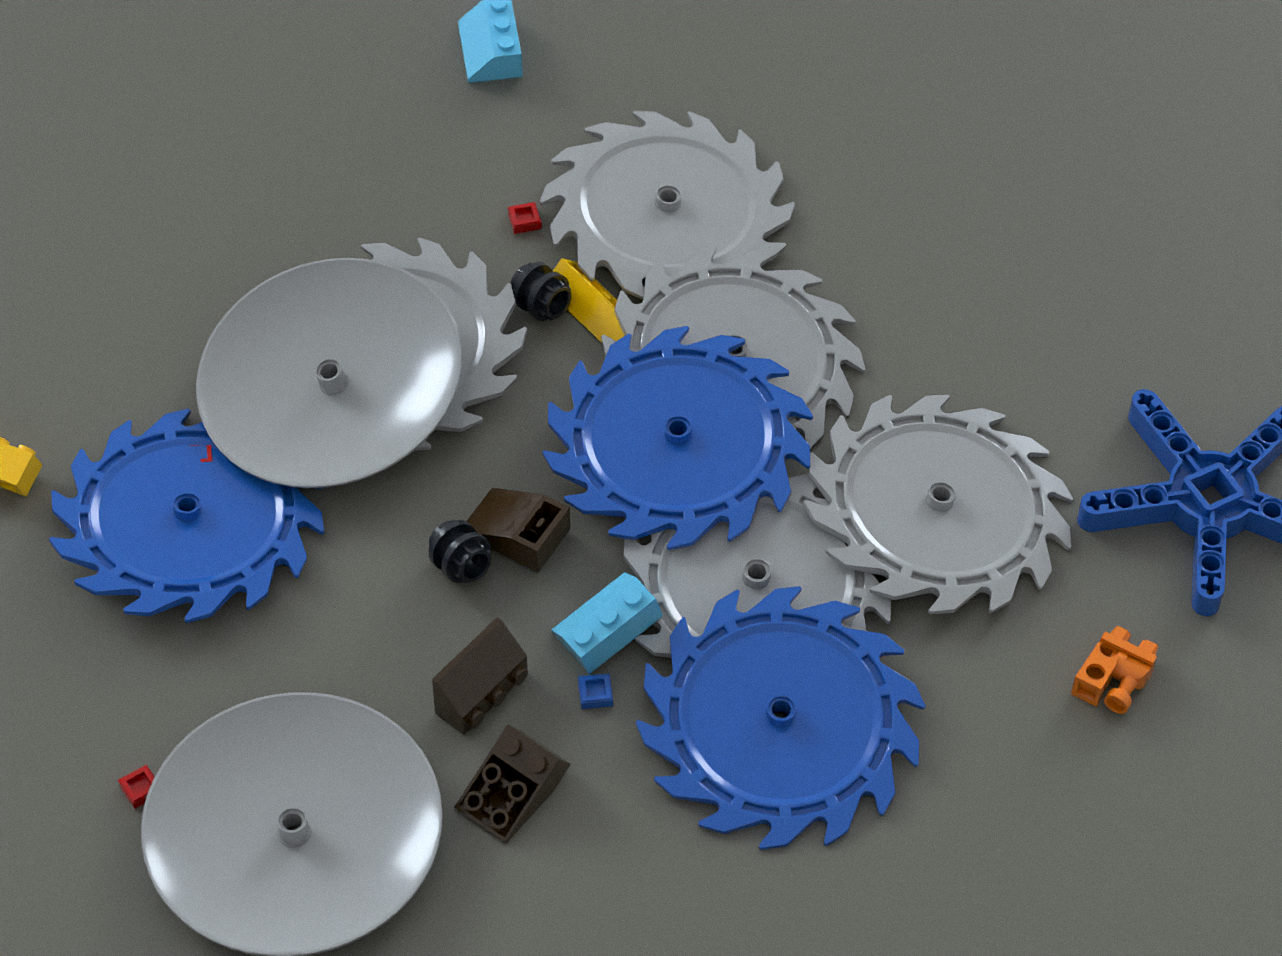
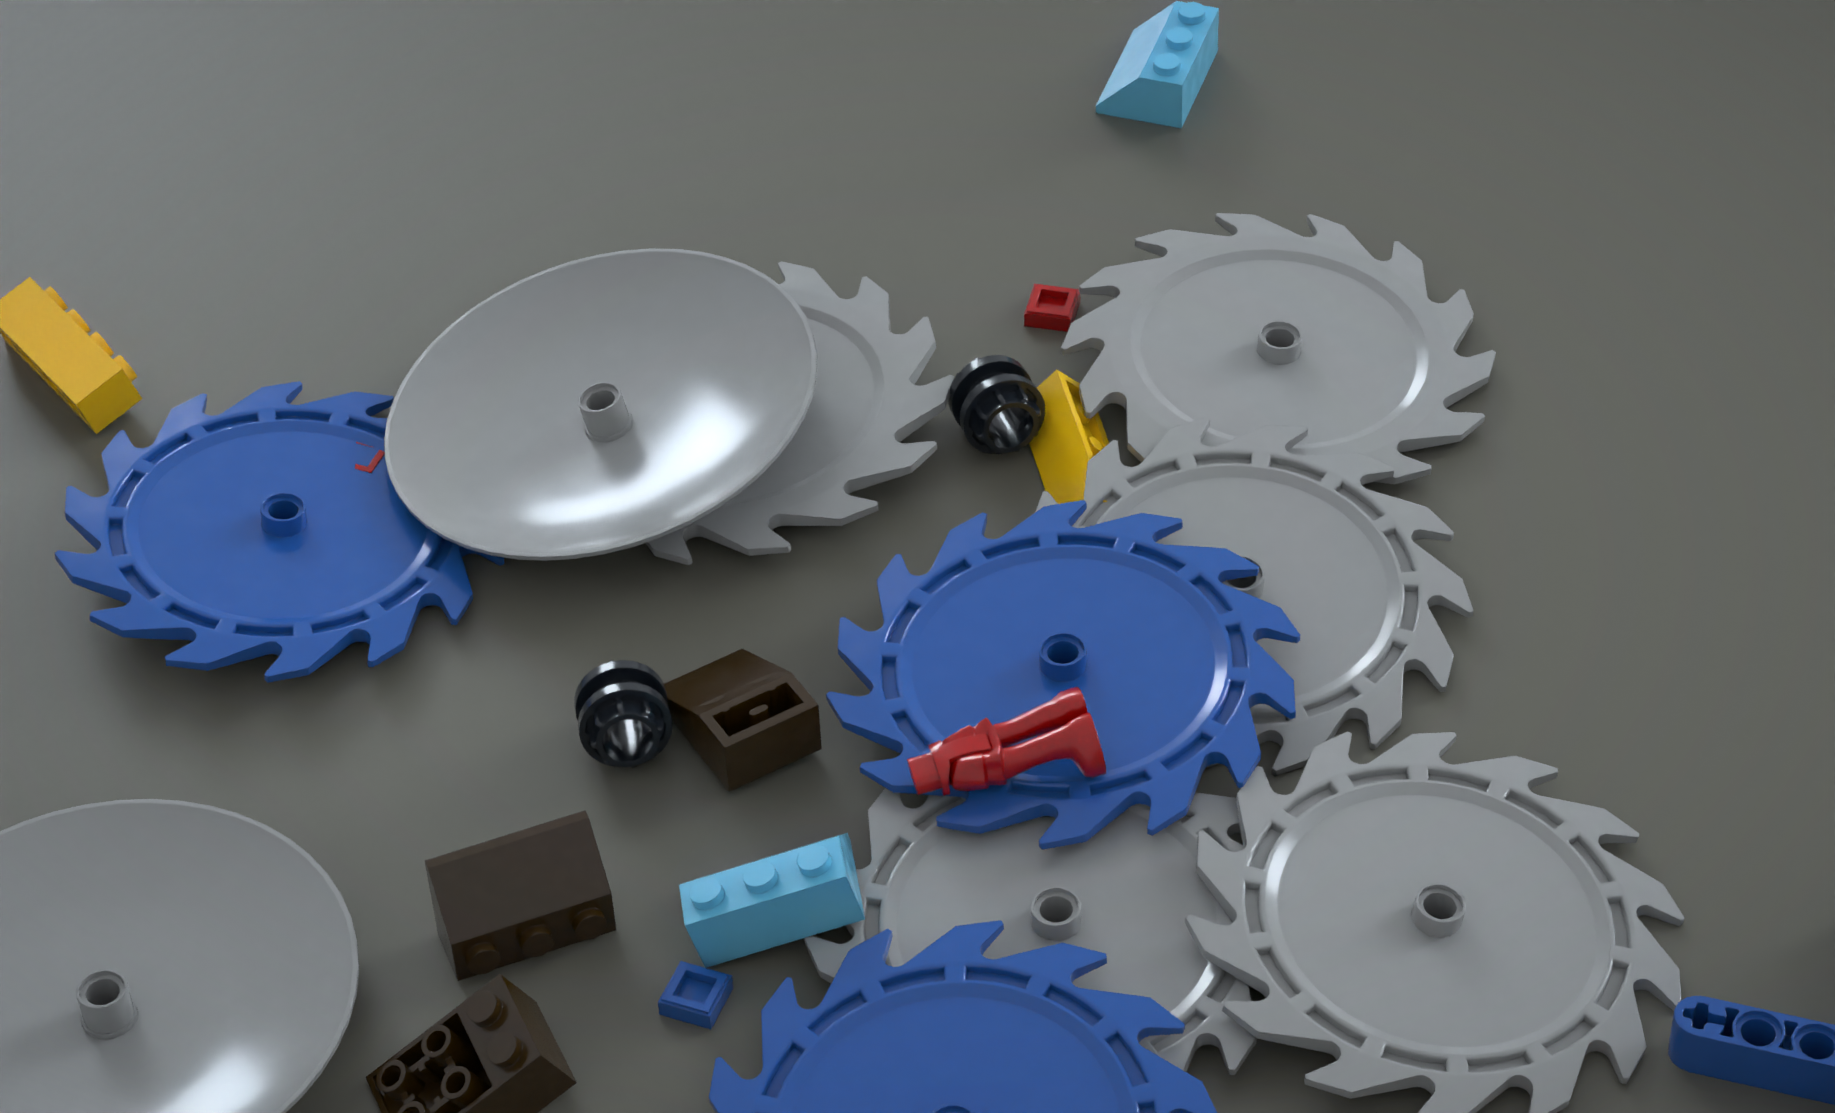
camera: 30 degrees right, 10 degrees down
(674, 503) = (985, 752): none -> red piece

